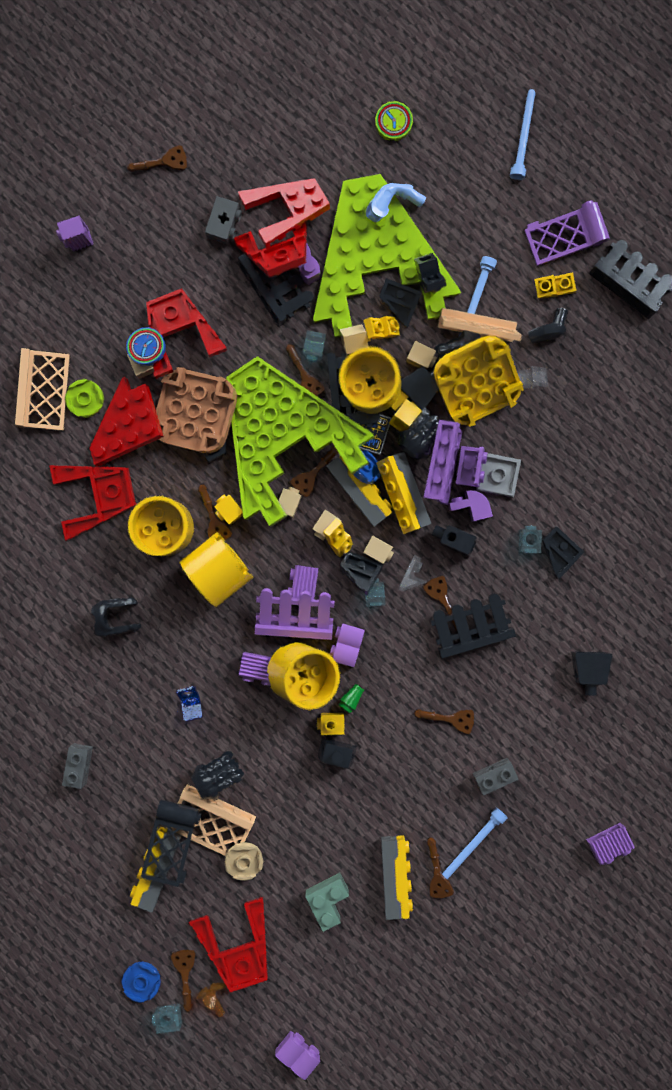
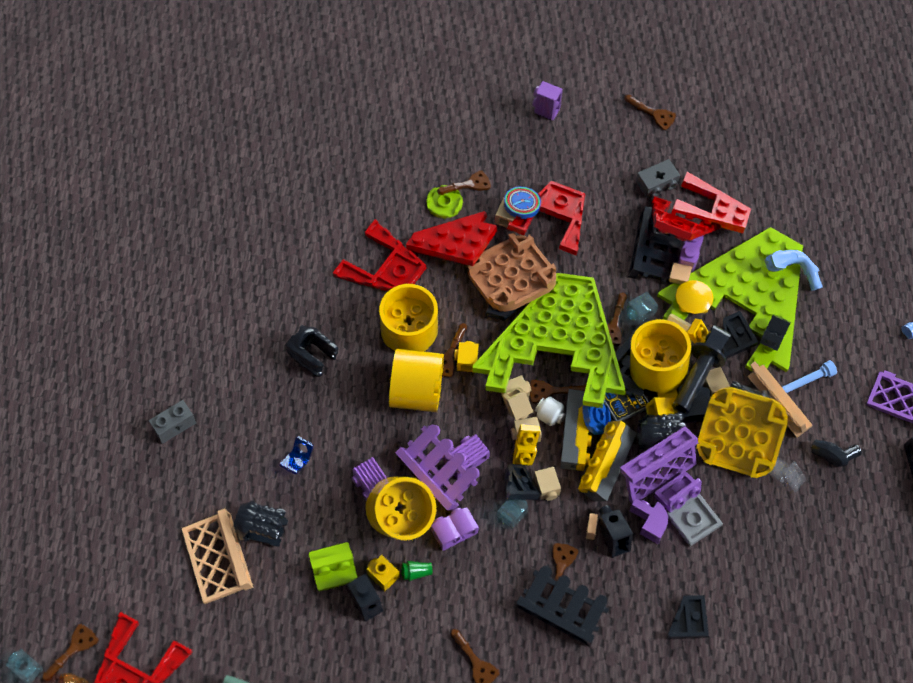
camera: 45 degrees right, 25 degrees down
(25, 386) = (413, 158): light nougat fence -> none
(88, 364) = (471, 184): none -> reddish brown piece
(138, 976) = (41, 626): blue tile -> none
(147, 892) = (141, 548): piece -> none
(173, 816) = (201, 525): black piece -> none
(243, 861) = (209, 608): tan tile -> none
(294, 751) = (333, 566): none -> lime bracket
(303, 514) = (517, 403): none -> tan brick
(315, 289) = (680, 273): none -> light nougat tile
(327, 493) = (550, 411): none -> white head
(344, 300) = (694, 297): none -> yellow dish
(393, 121) = (846, 223): tile -> none
(400, 342) = (707, 356): none -> black piece
(408, 580) = (549, 526): clear slope -> none
(438, 552) = (591, 528): none -> light nougat tile
(524, 547) = (669, 594): clear light blue brick -> none
(555, 285) = (865, 427): yellow slope -> none

